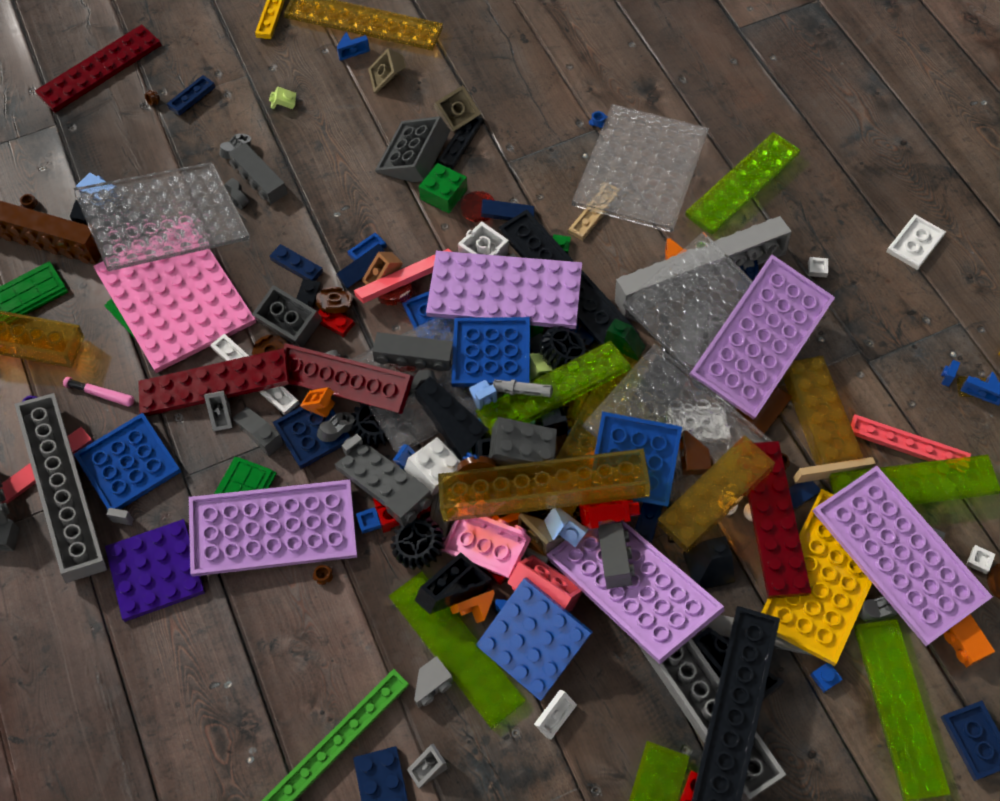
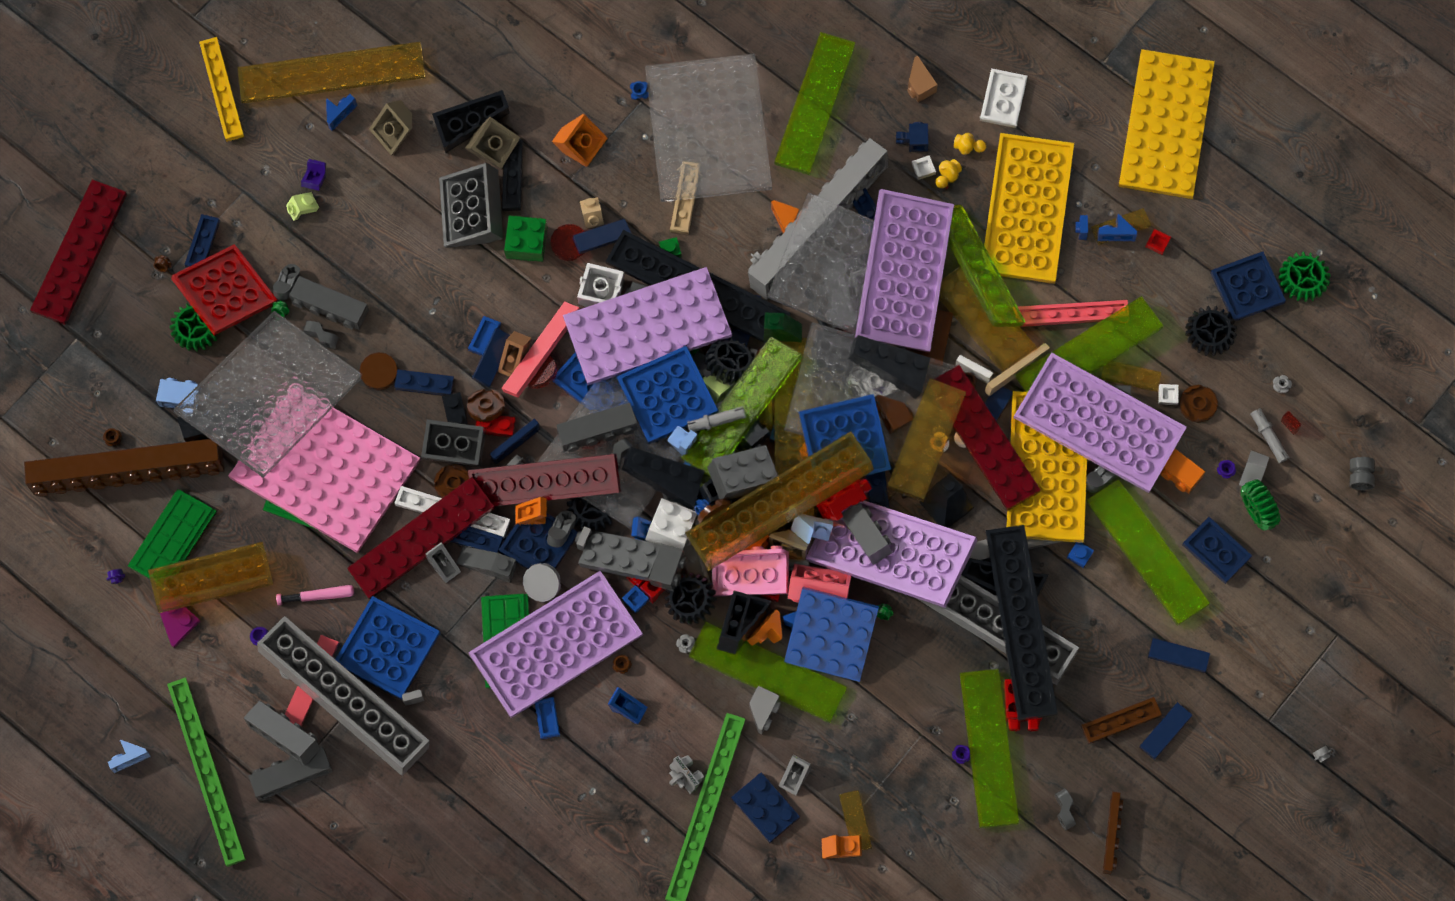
camera: 25 degrees left, 10 degrees up
(145, 149) = (193, 340): none -> green gear
(153, 570) = (471, 728): dark purple plate -> none
(181, 129) = (224, 289): none -> red plate
(218, 162) = (281, 308): none -> green plate
(227, 593) = (547, 718): none -> blue tile
(262, 406) = (479, 539): none -> dark blue plate
(264, 239) = (378, 371): none -> reddish brown tile
(292, 466) = (541, 582): none -> light grey tile
(303, 615) = (627, 706): none -> blue slope
(306, 82) = (314, 175): none -> dark purple bracket
(322, 720) = (682, 775): none -> light grey hips
(341, 339) = (515, 441): none -> dark blue tile
(392, 578) = (685, 648): none -> light grey plate
(438, 83) = (461, 121): none -> black wedge
(509, 190) = (591, 212): none -> tan bracket
(529, 135) = (580, 140): none -> orange slope
(555, 714) = (877, 686): white plate -> none
(598, 642) = (884, 612): none -> green plate
(712, 410) = (891, 363): none -> black wedge
(796, 459) = (978, 371): none -> white tile
(821, 241) = (916, 137): none -> dark blue brick
(836, 370) = (982, 272): none -> clear neon green plate
(840, 279) = (949, 171): none -> yellow animal
(845, 200) = (920, 82): none -> medium nougat slope
(867, 262) = (966, 143): none -> yellow animal
(901, 338) = (1028, 206): none -> yellow plate
(952, 527) = (1131, 375): none -> clear yellow tile

